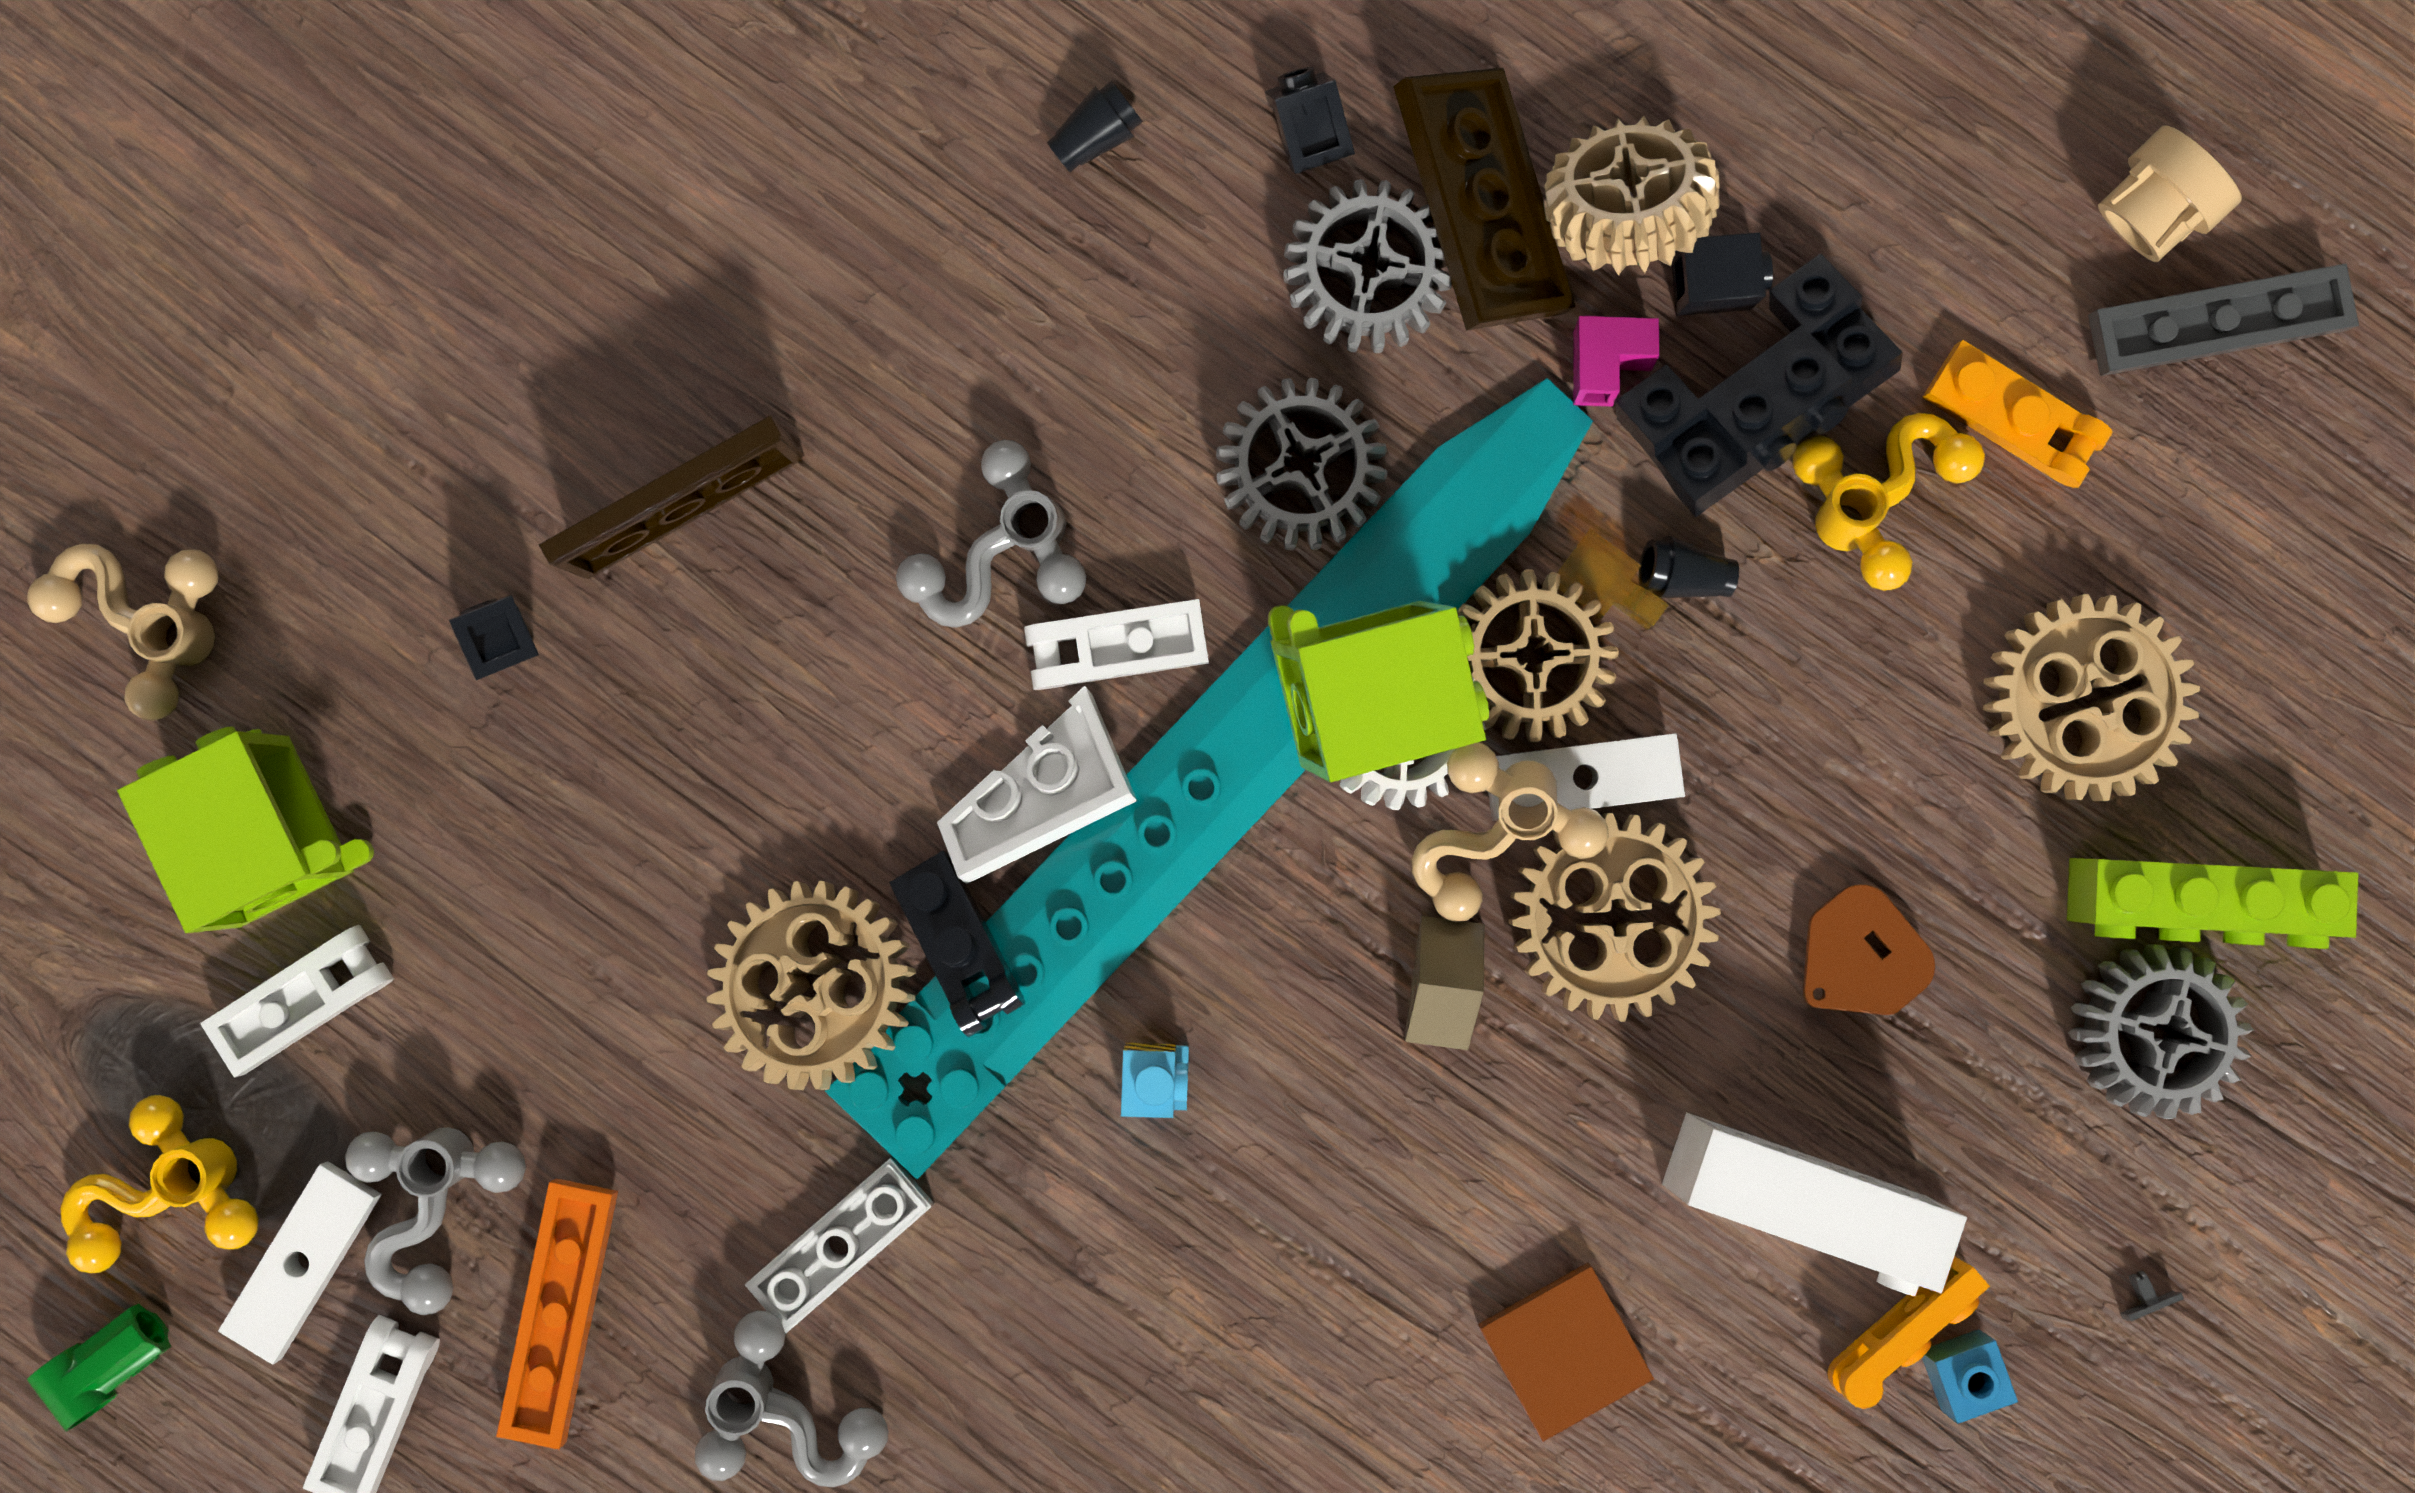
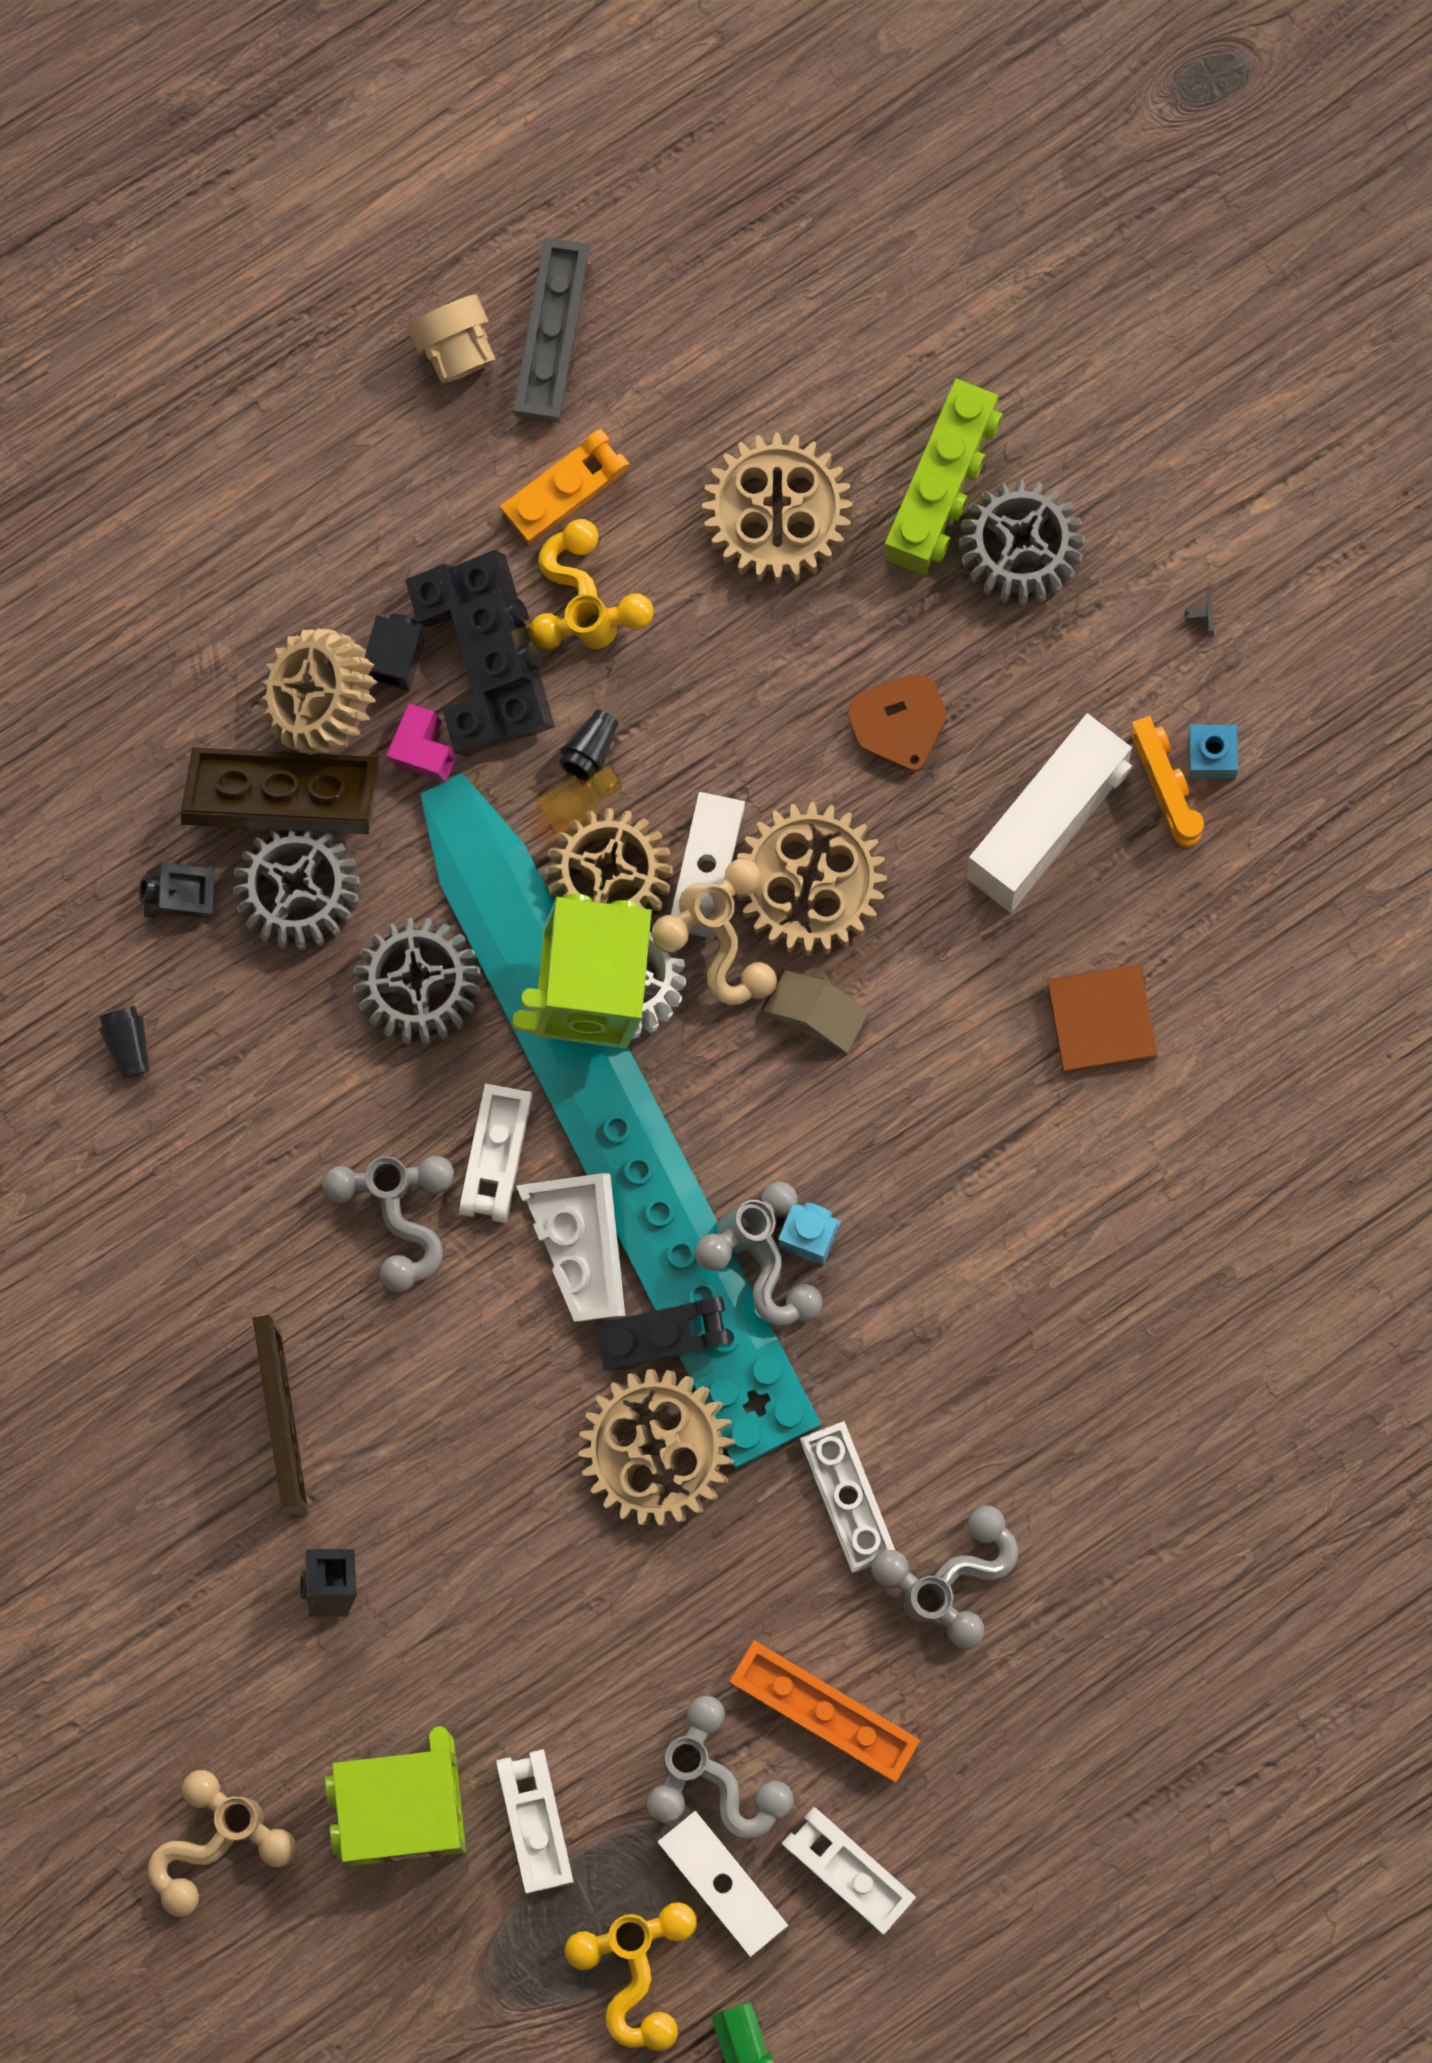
camera: 65 degrees left, 10 degrees down
(1079, 974) = (715, 1252): none -> light grey piece

